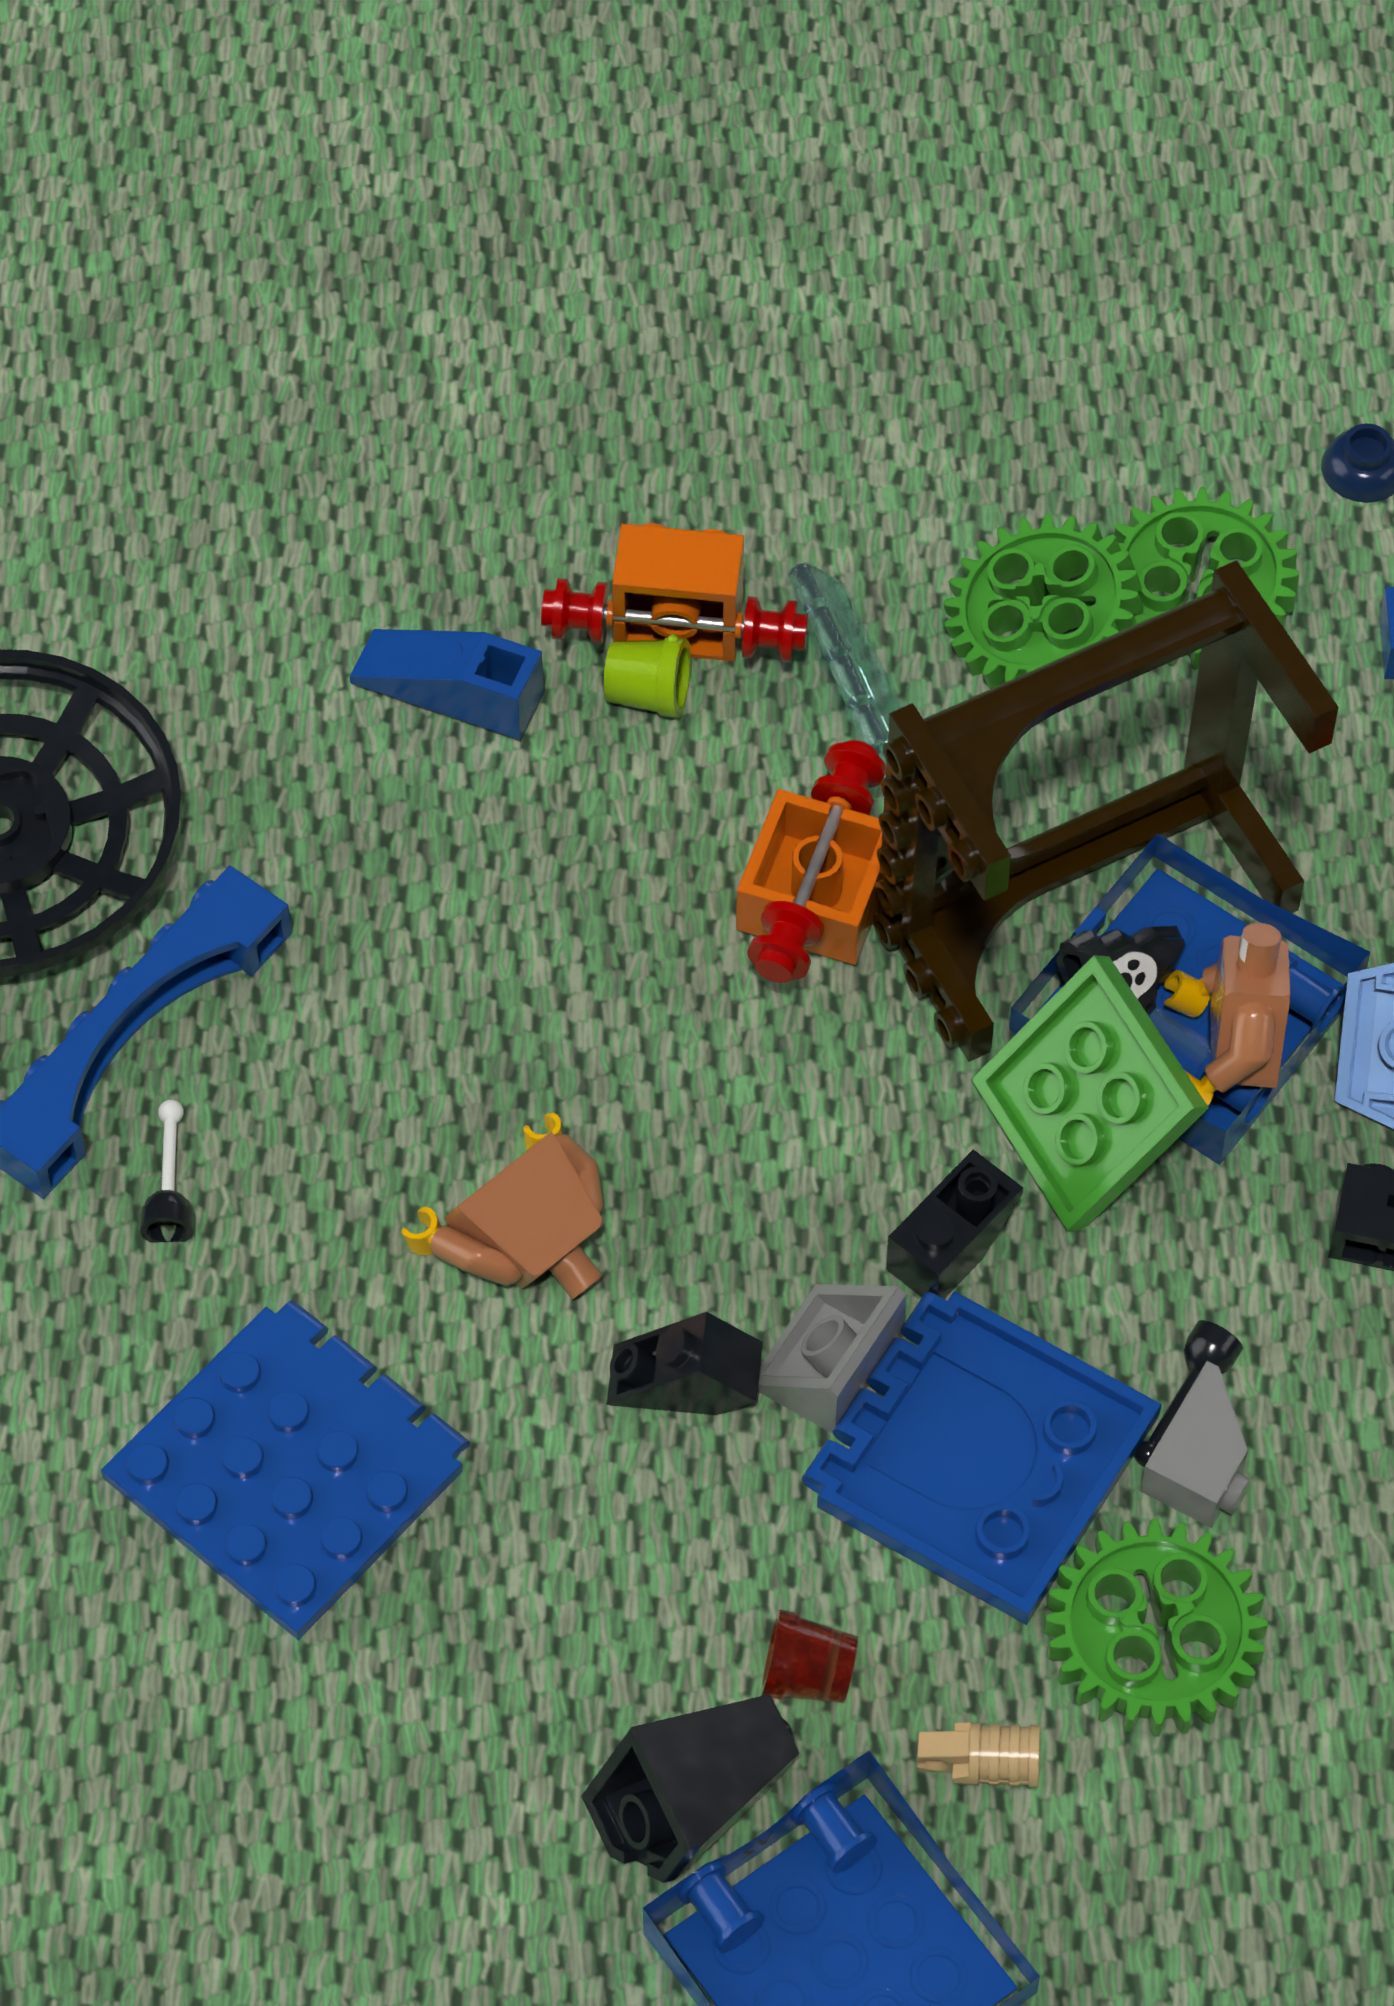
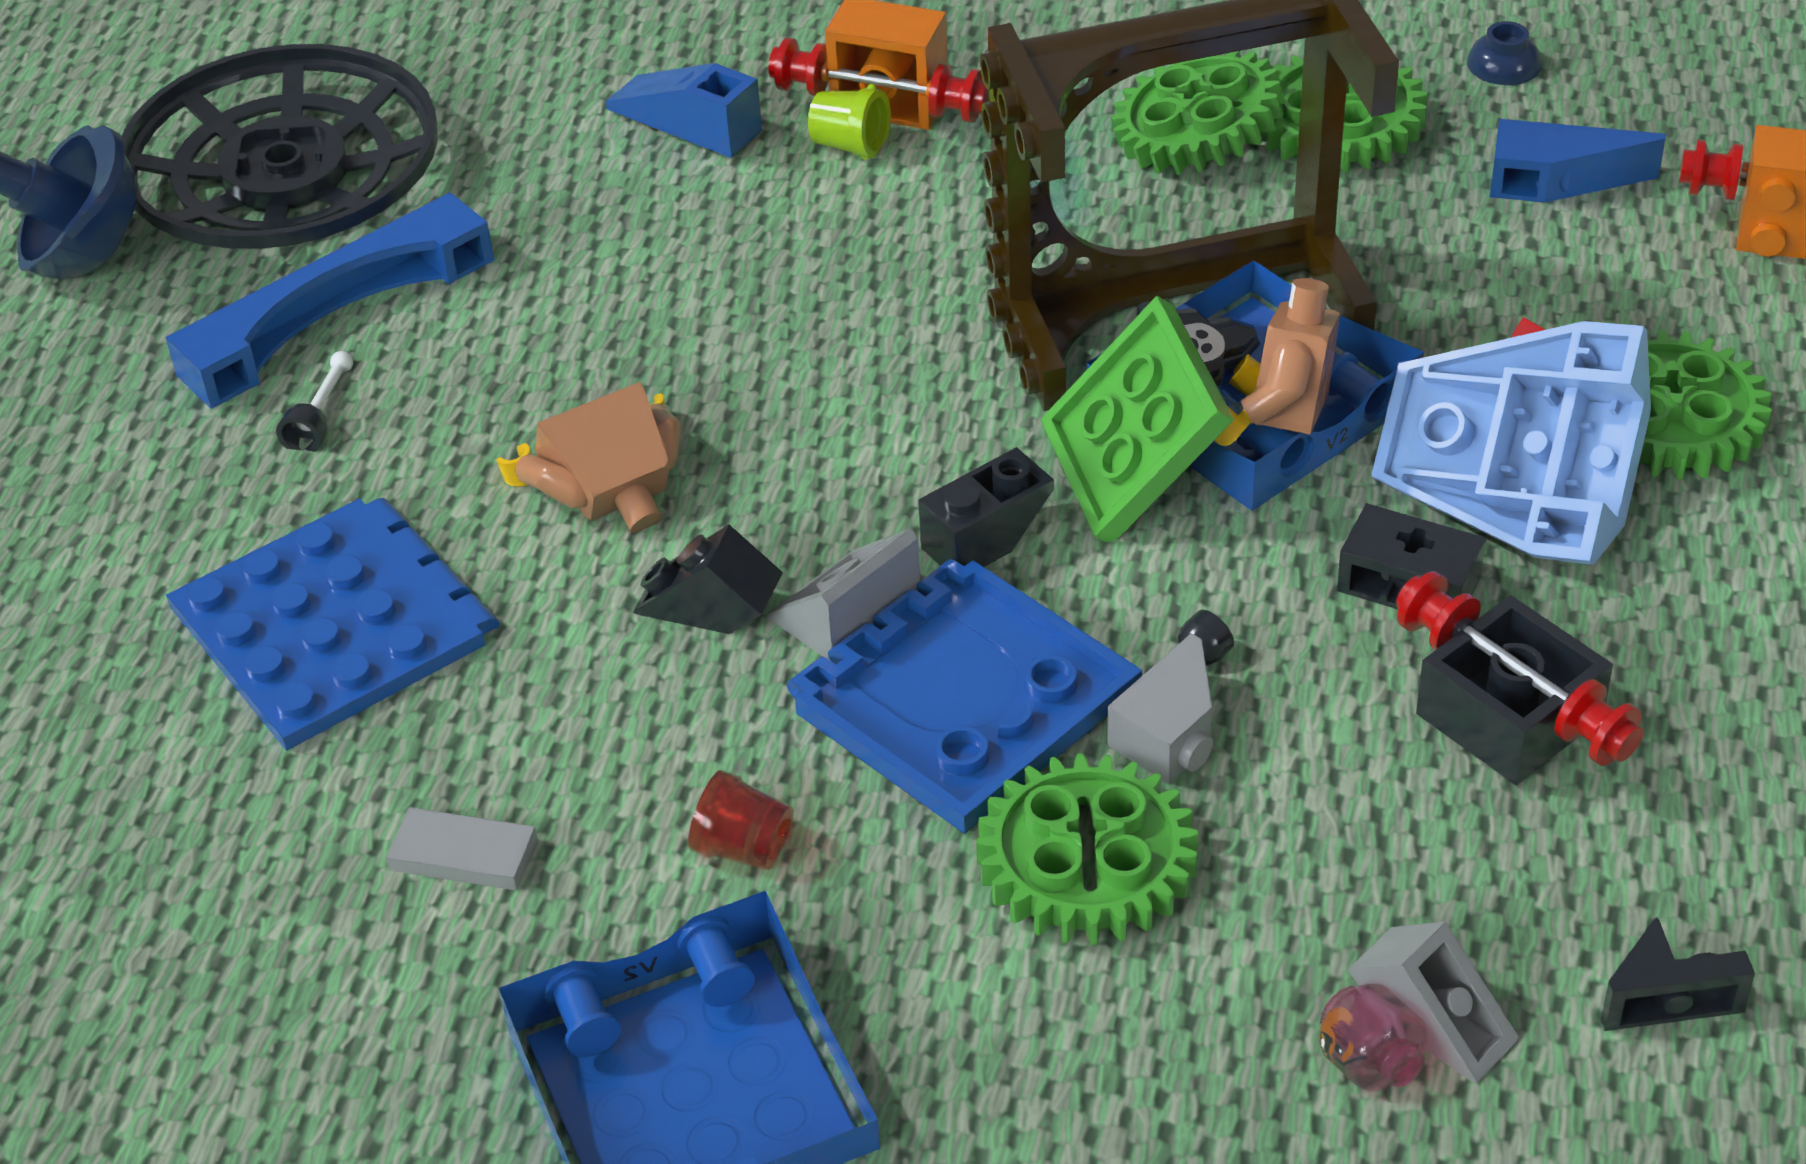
camera: 15 degrees right, 15 degrees down
(527, 1731) = (462, 848): none -> light grey tile
(686, 1782) = (593, 894): black slope -> none
(815, 869) = (933, 255): orange brick -> none
(983, 1754) = (887, 928): tan hinge -> none

